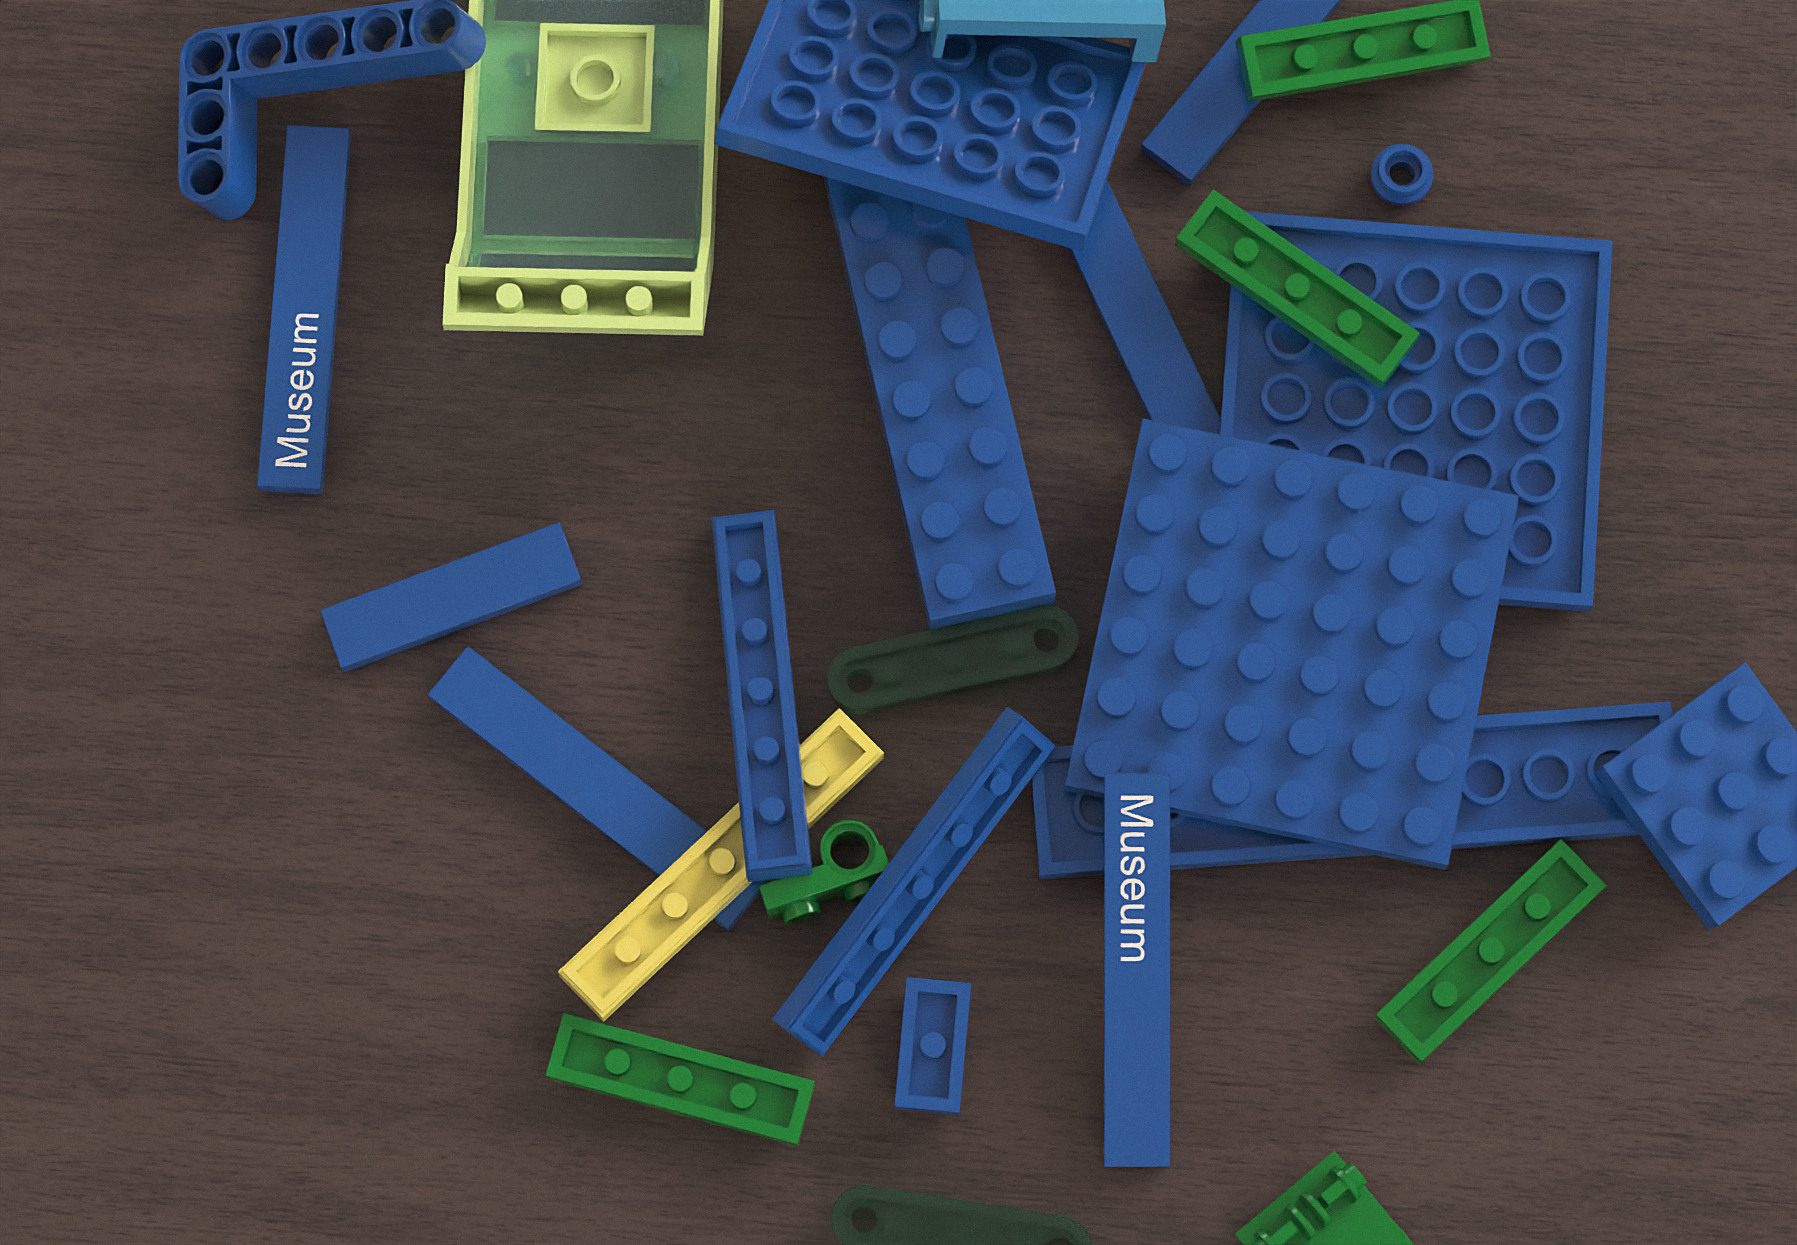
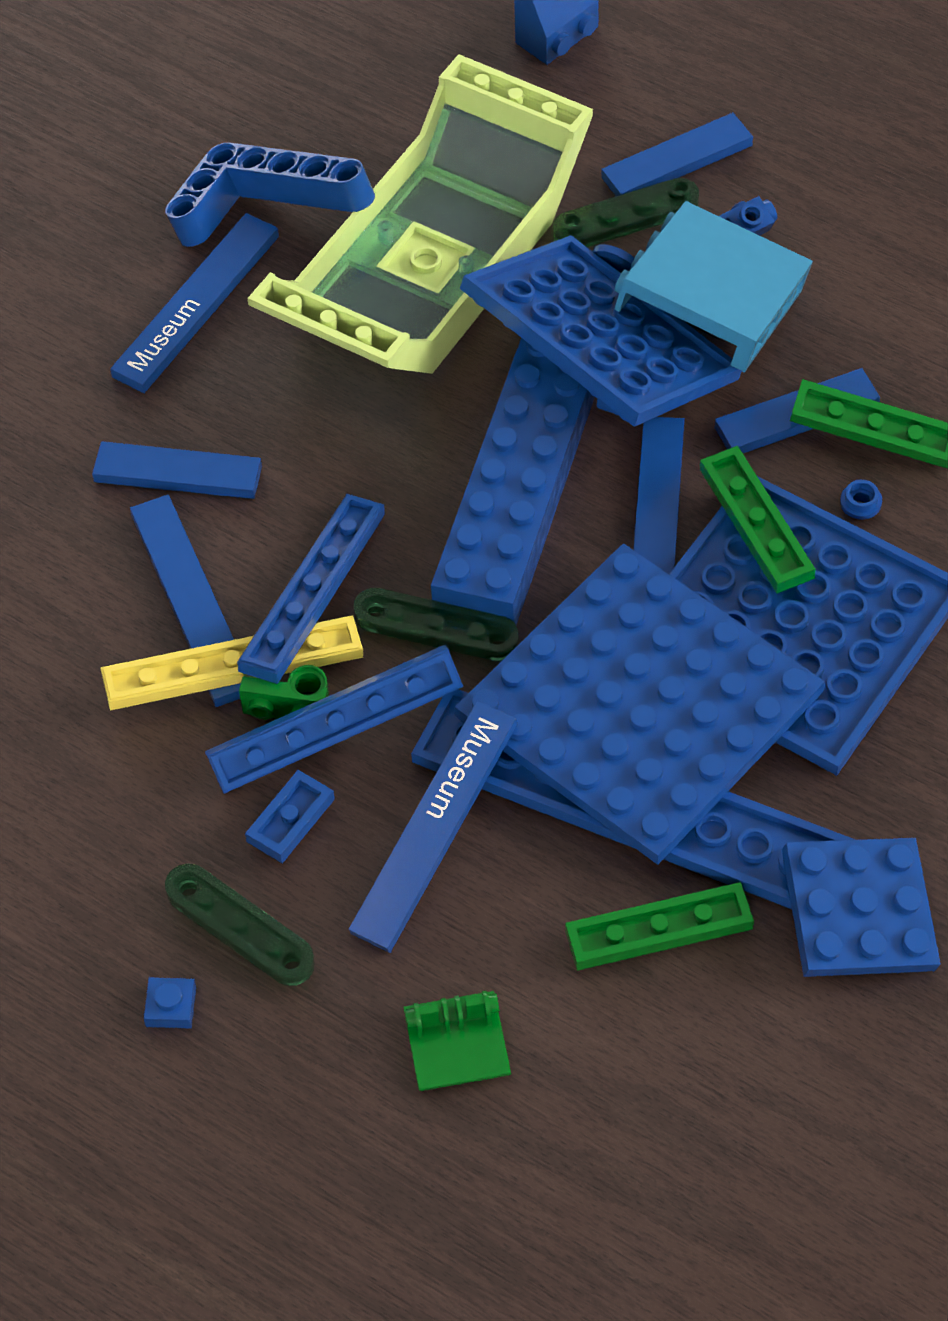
camera: 30 degrees right, 20 degrees down
(680, 1080) = (134, 764): green plate -> none

